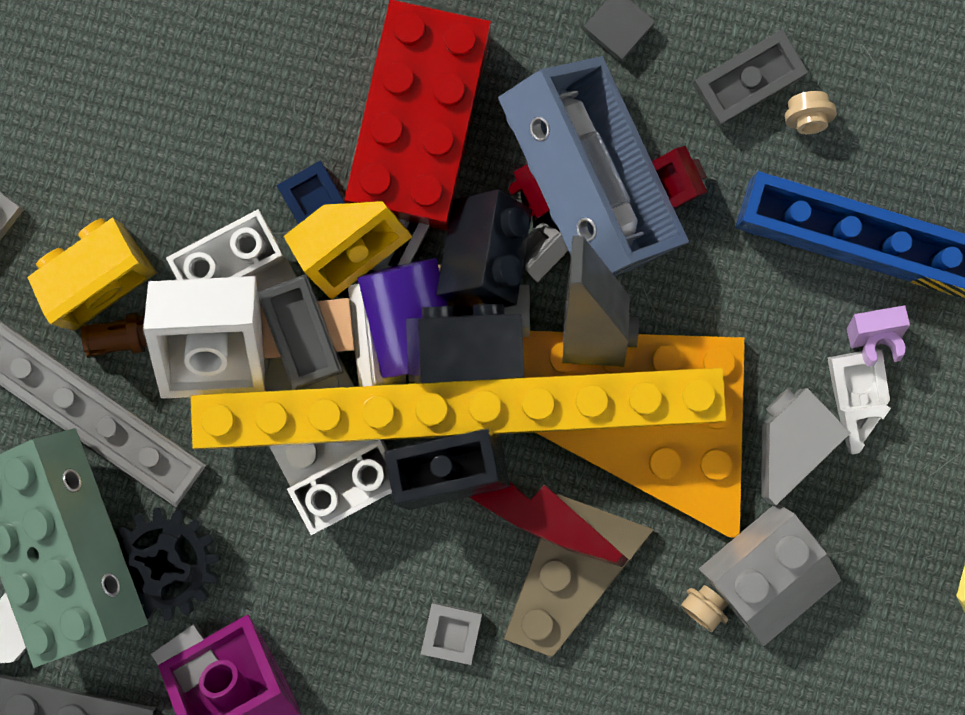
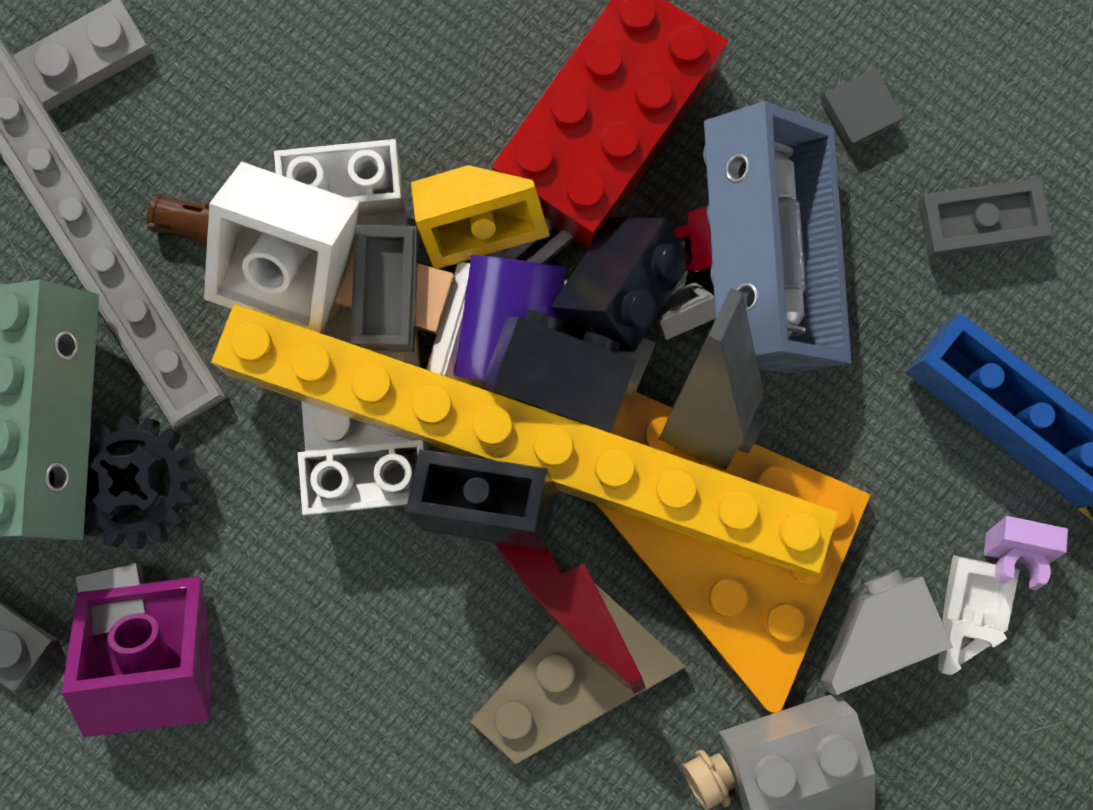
camera: 20 degrees right, 5 degrees down
(90, 274) = (185, 142): yellow slope -> none
(309, 191) = (458, 147): dark blue tile -> none
(451, 633) = (414, 691): light grey tile -> none
(680, 176) = (869, 288): dark red tile -> none
(810, 112) = (1037, 279): tan plate -> none

